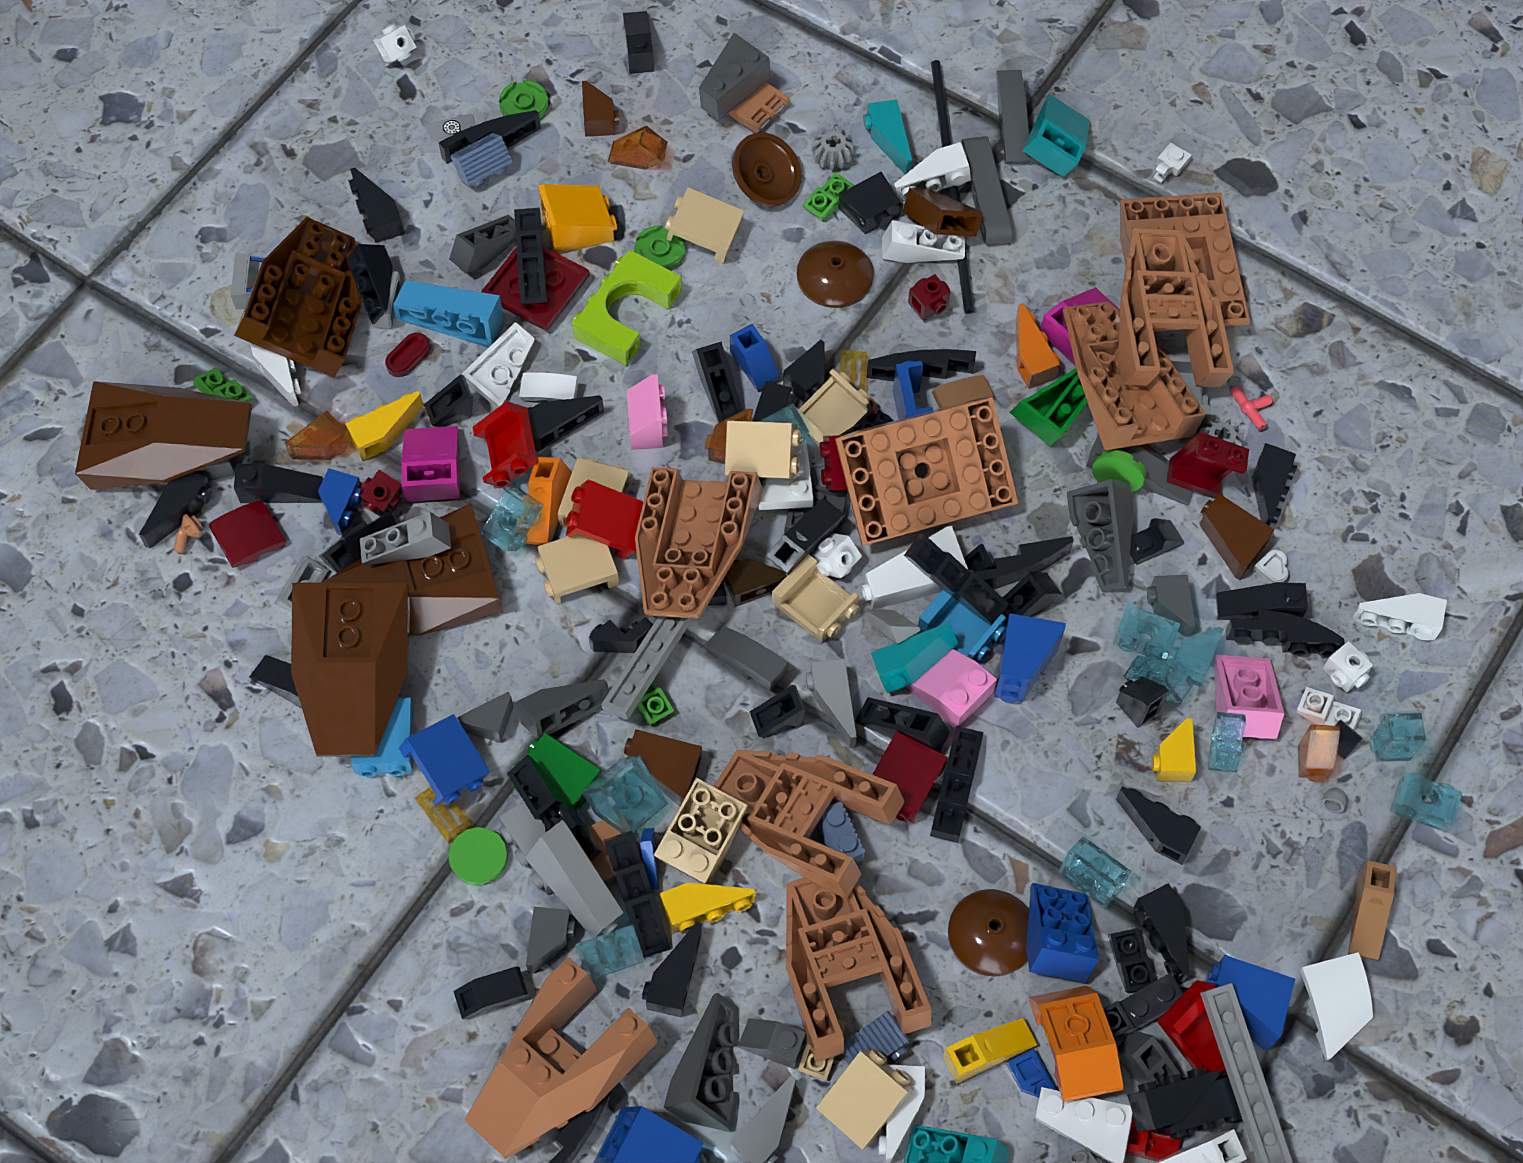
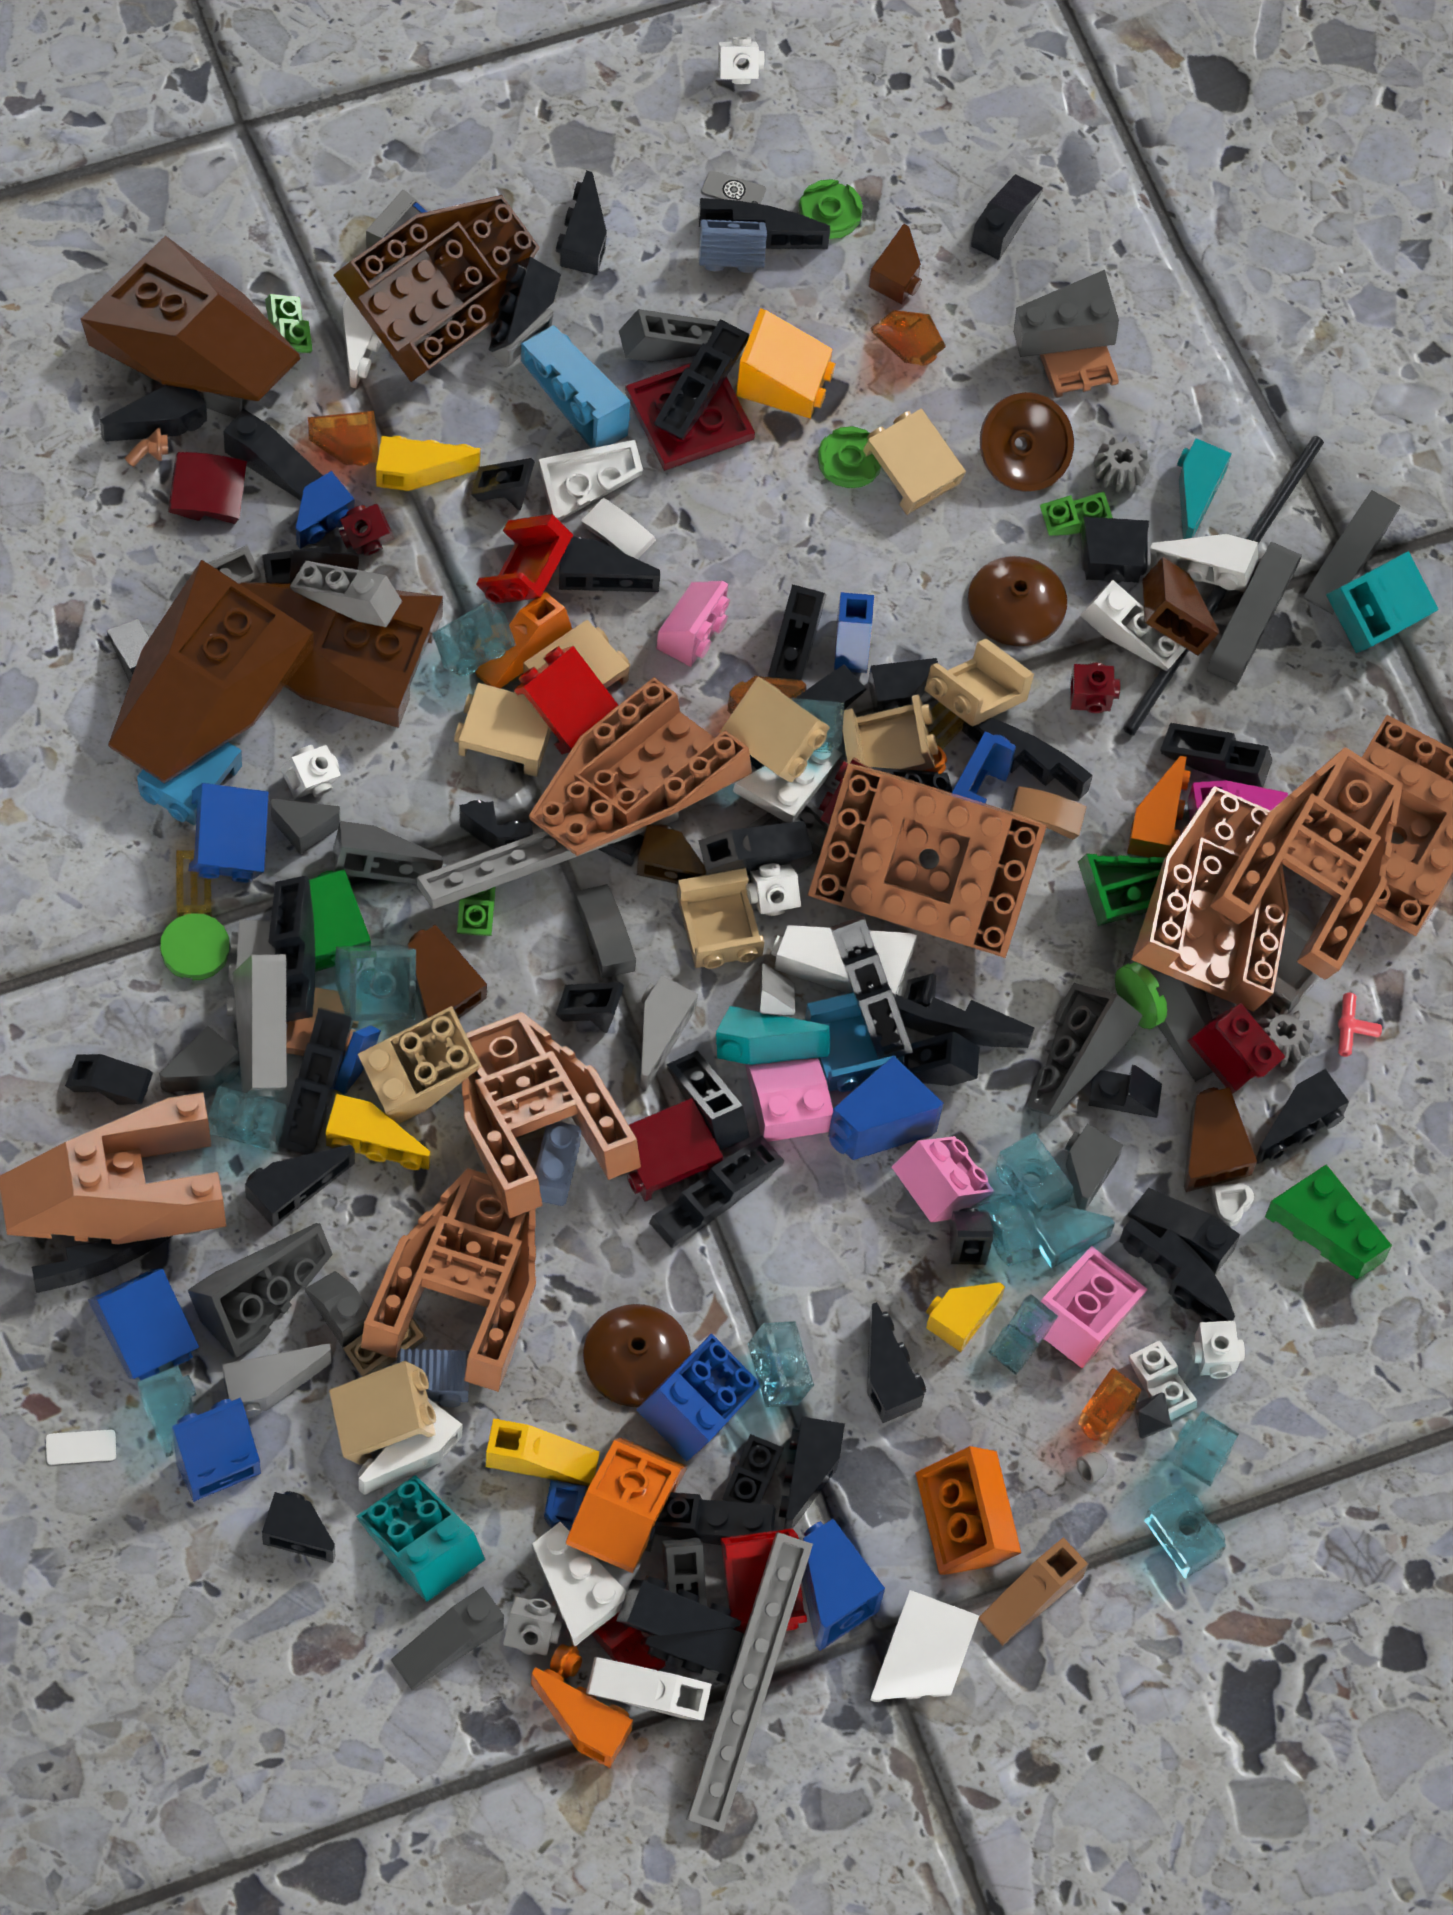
camera: 30 degrees right, 0 degrees up
(407, 354) = (503, 405): dark red tile -> none
(430, 464) = (438, 532): dark pink slope -> none
(468, 680) = (311, 771): none -> white brick
(630, 276) = (792, 466): lime arch -> none
(861, 338) = (981, 685): none -> tan panel
(1035, 290) = (1218, 754): none -> black slope
(1091, 674) = (942, 1177): none -> bright pink slope
(1286, 886) = (968, 1511): none -> orange slope
(1346, 538) = (1332, 1222): none -> green wedge
(1410, 614) = (1333, 1341): white slope -> none

